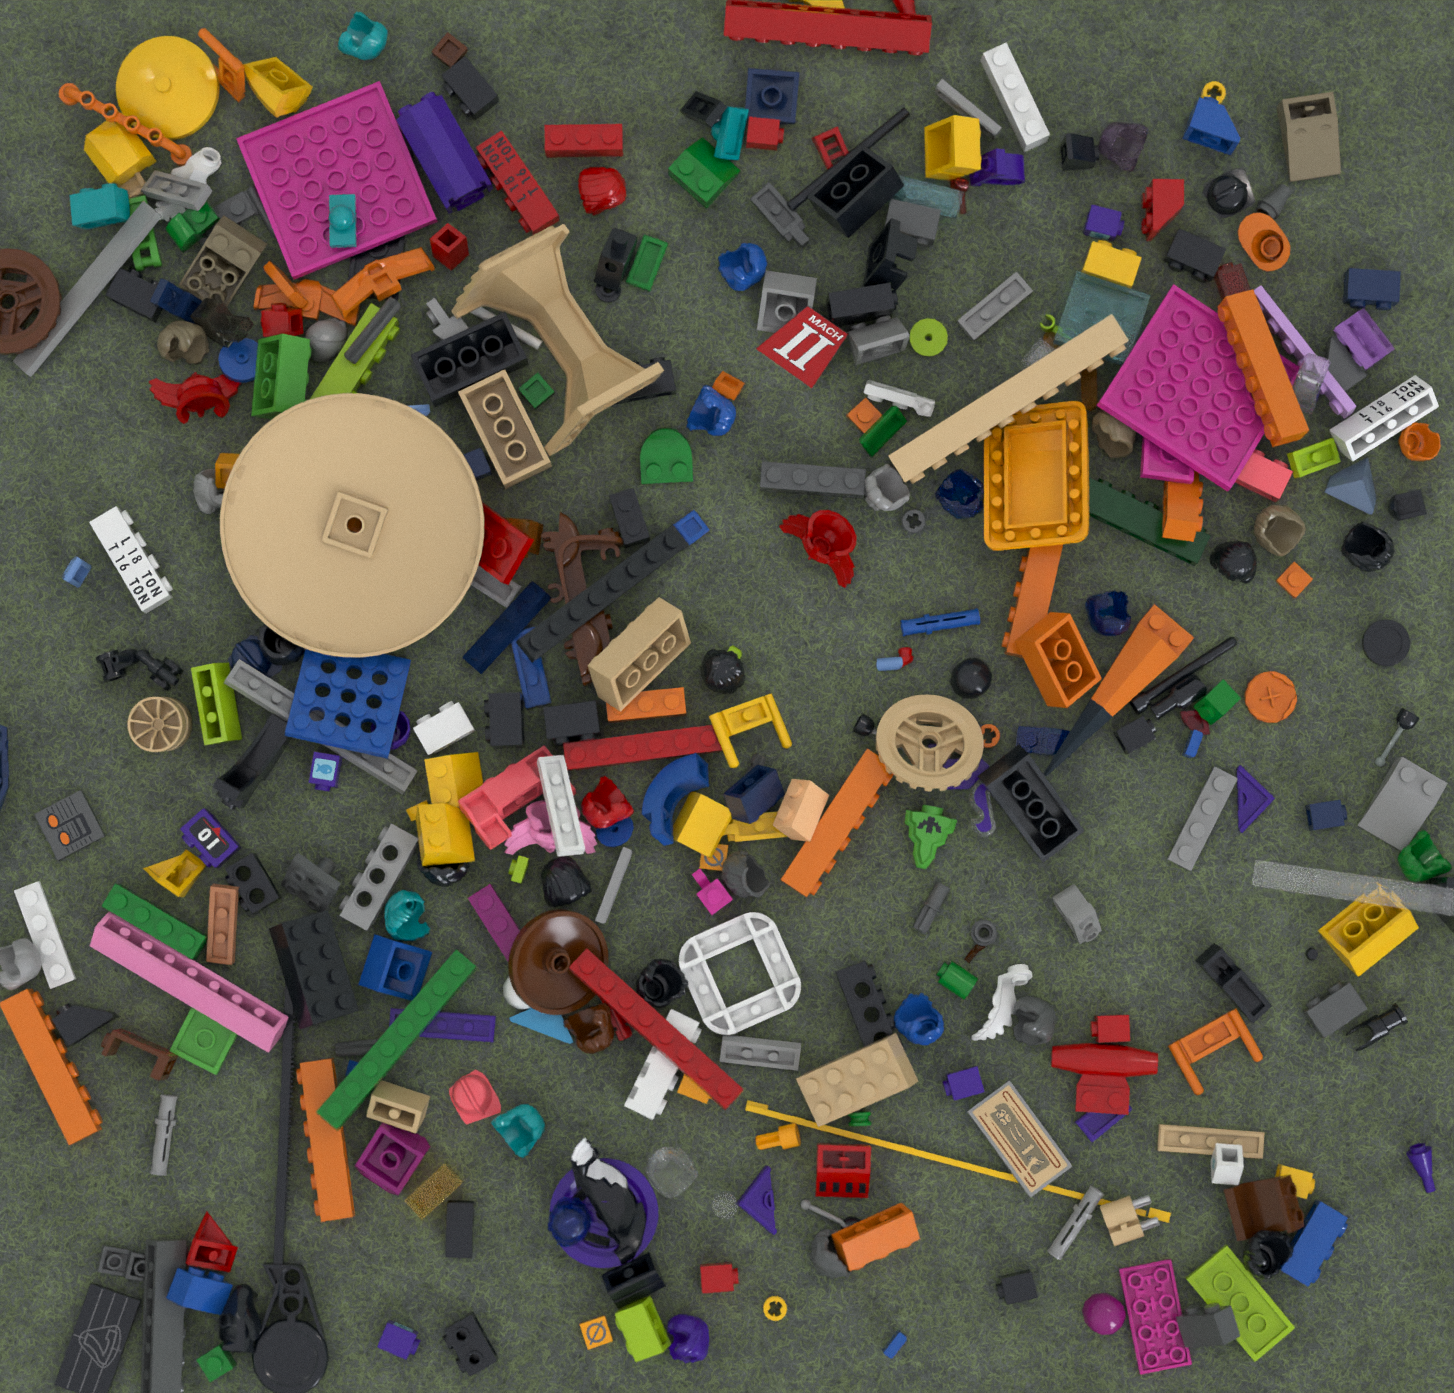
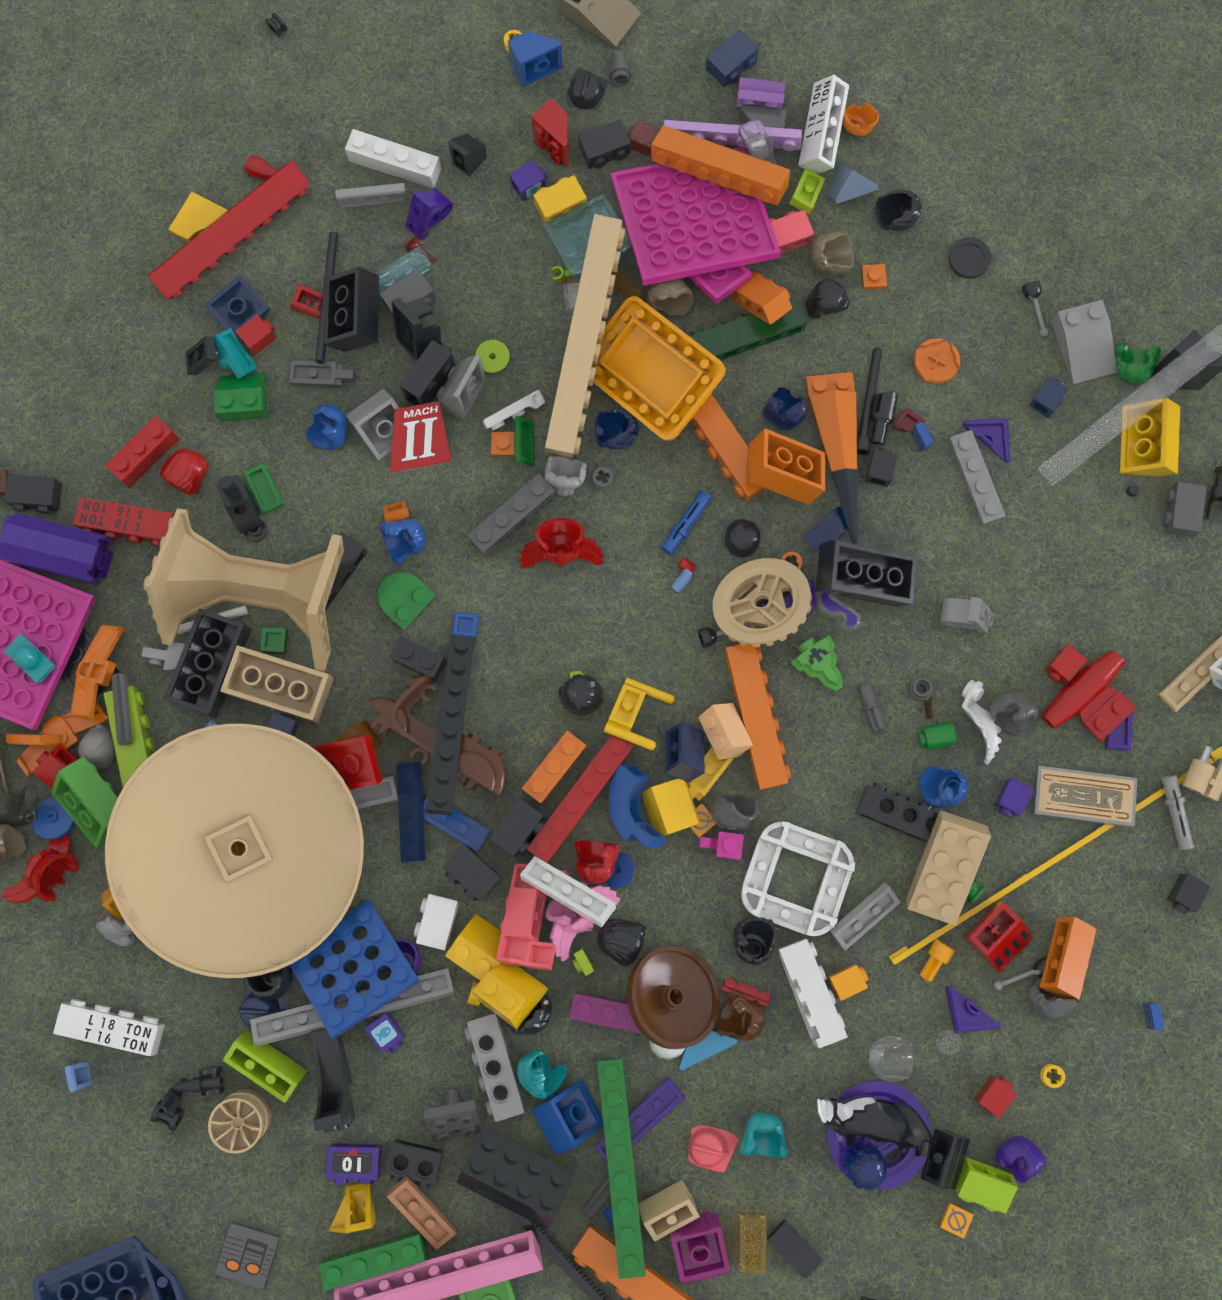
camera: 40 degrees left, 5 degrees down
(449, 246) = (120, 605): red brick -> none
(614, 885) = (656, 907): light grey tile -> none
(639, 654) = (516, 738): tan brick -> none
(656, 1029) = (785, 973): red plate -> none
(952, 148) = (385, 223): yellow piece -> none
(994, 306) = (514, 296): light grey plate -> none
(1123, 143) = (489, 120): clear purple hair -> none
(1208, 1039) = (1130, 610): orange plate -> none
(1217, 702) = (910, 395): green brick -> none
(1233, 982) = (1106, 557): black slope -> none
(1264, 241) = (638, 93): orange piece -> none
(1407, 505) = (893, 164): black plate -> none

